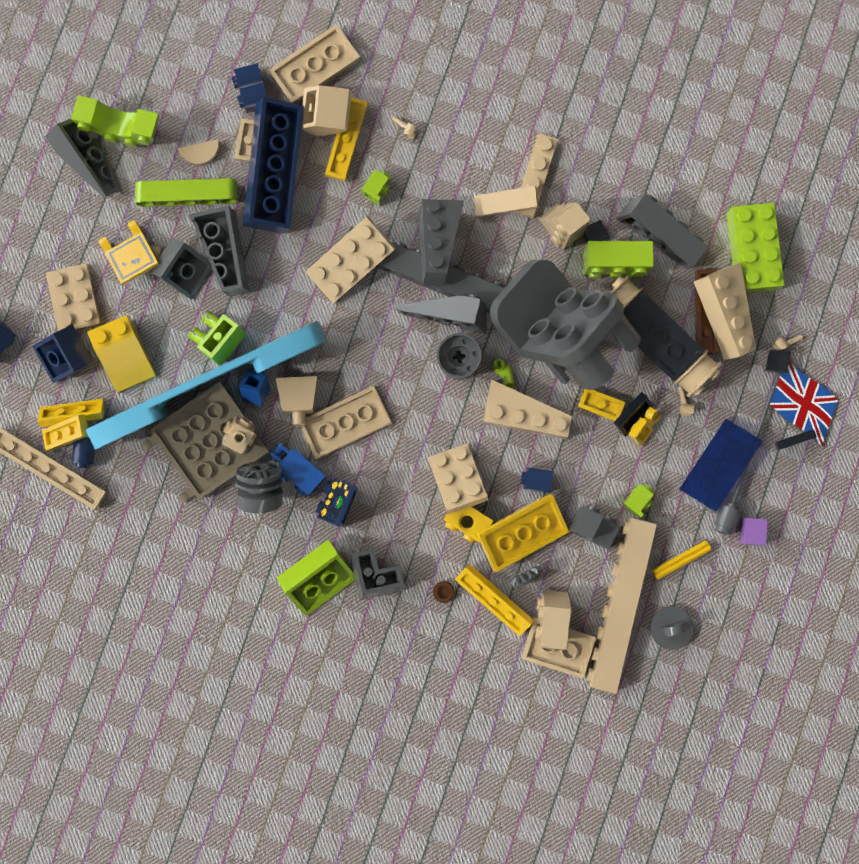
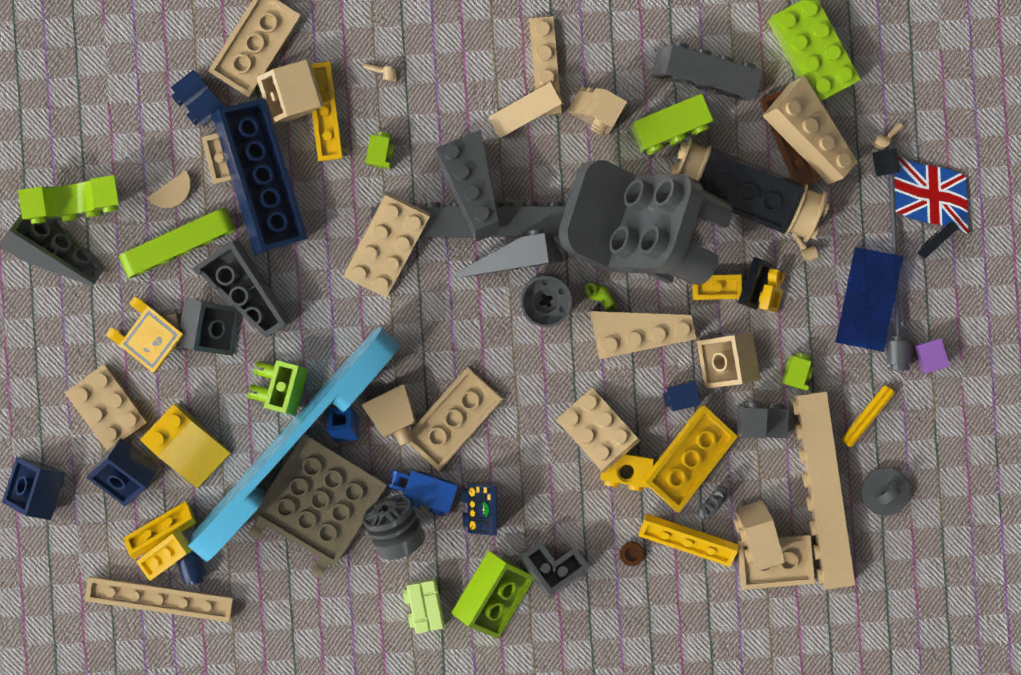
camera: 25 degrees left, 5 degrees up
(238, 434) = (349, 482): tan brick -> none
(257, 563) = (425, 605): none -> yellowish green brick
(586, 466) = (728, 360): none -> tan slope
(596, 232) = (636, 103): black tile -> none

